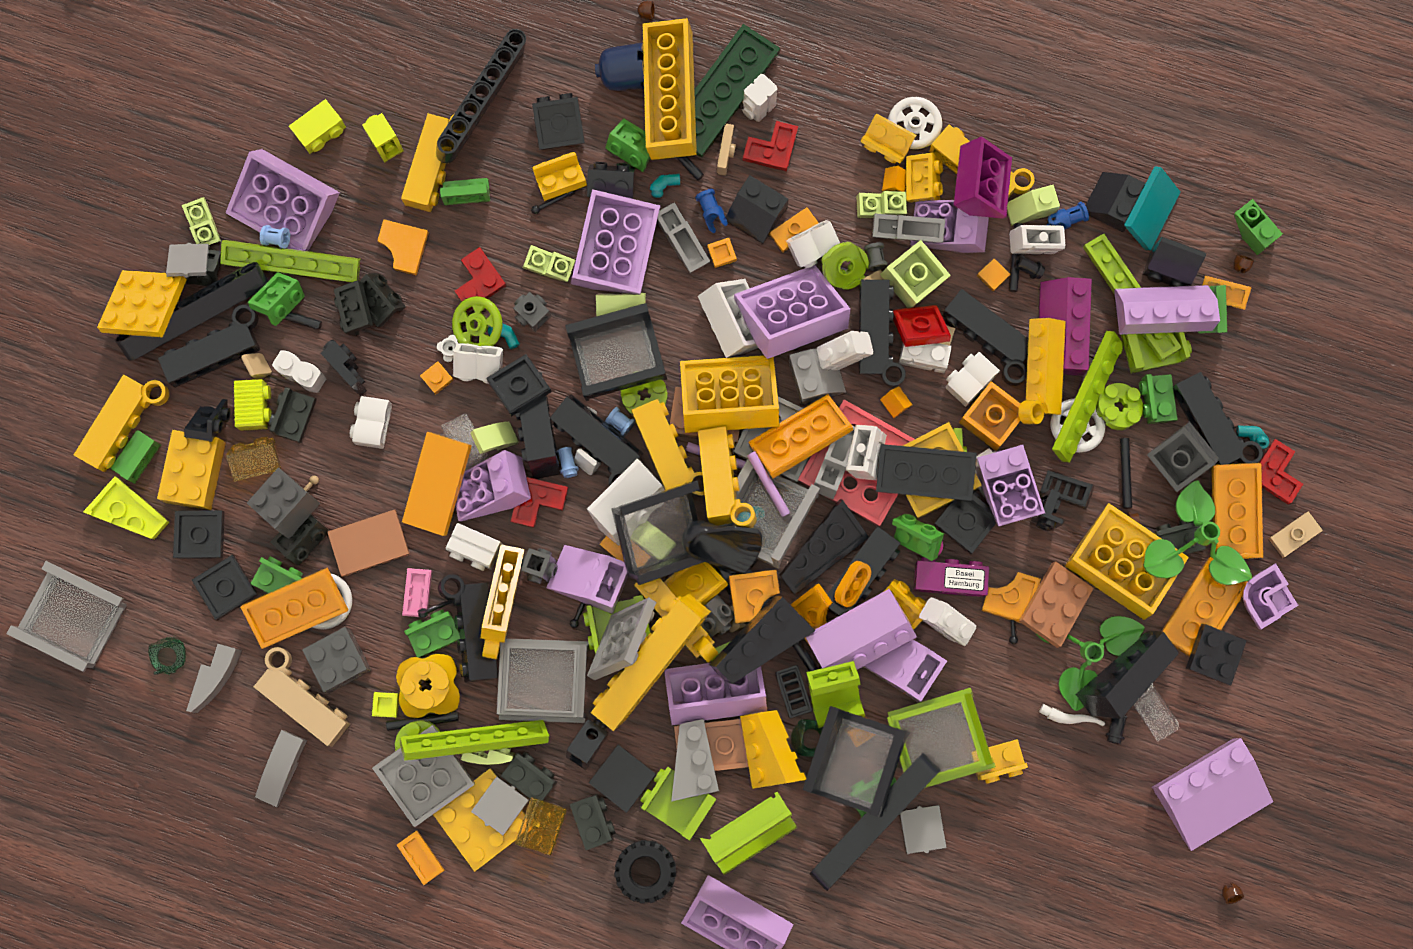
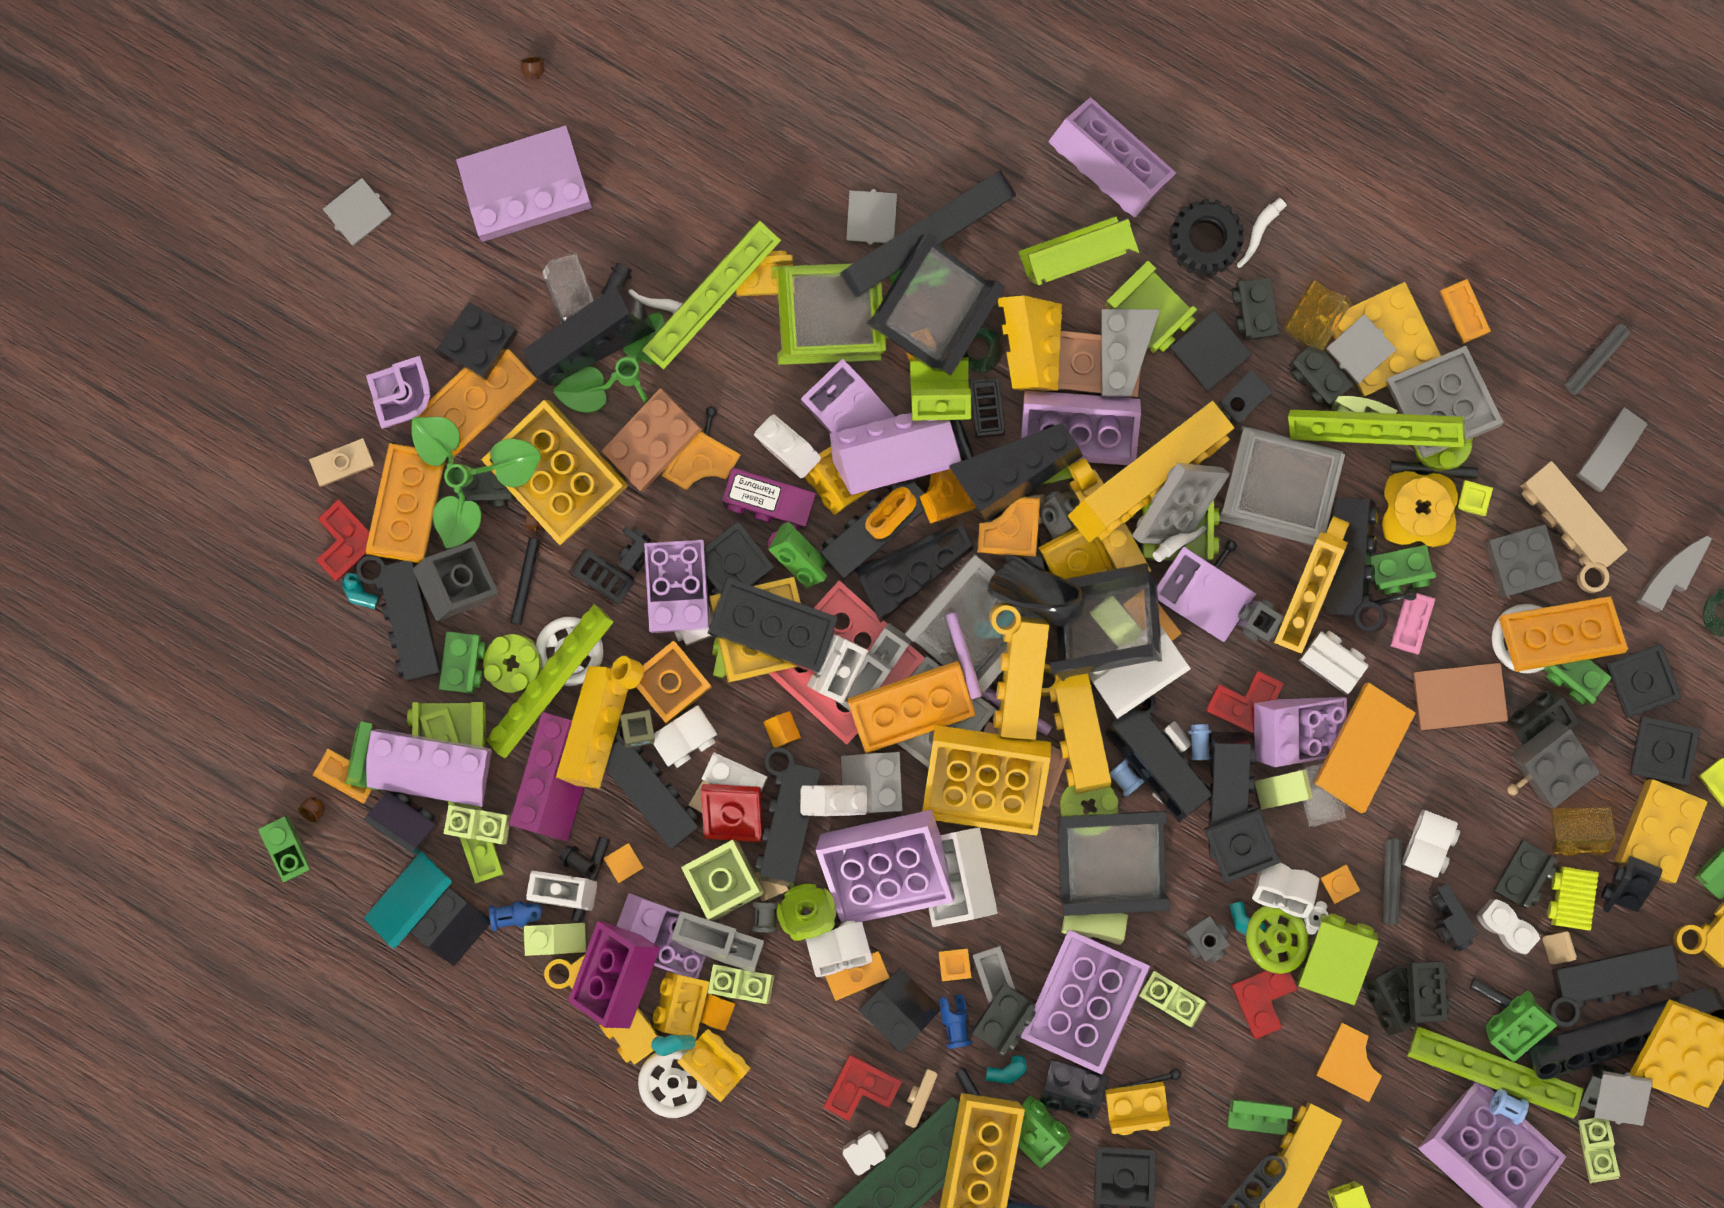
camera: 170 degrees left, 5 degrees up
(304, 842) = (1597, 359): none -> dark grey axle
(396, 388) = (1392, 880): none -> dark grey axle
(426, 317) = (1339, 959): none -> lime panel
(599, 901) = (1263, 220): none -> white animal
(619, 610) = (1175, 542): none -> white animal
(674, 215) = (1004, 1019): none -> pearl dark grey bracket
(927, 141) = (672, 1044): none -> teal arm
(1011, 370) = (637, 729): none -> olive brick
(1039, 732) = (711, 294): none -> lime plate
(1115, 275) = (477, 824): none -> yellowish green slope
(1340, 740) = (357, 212): none -> light grey piece

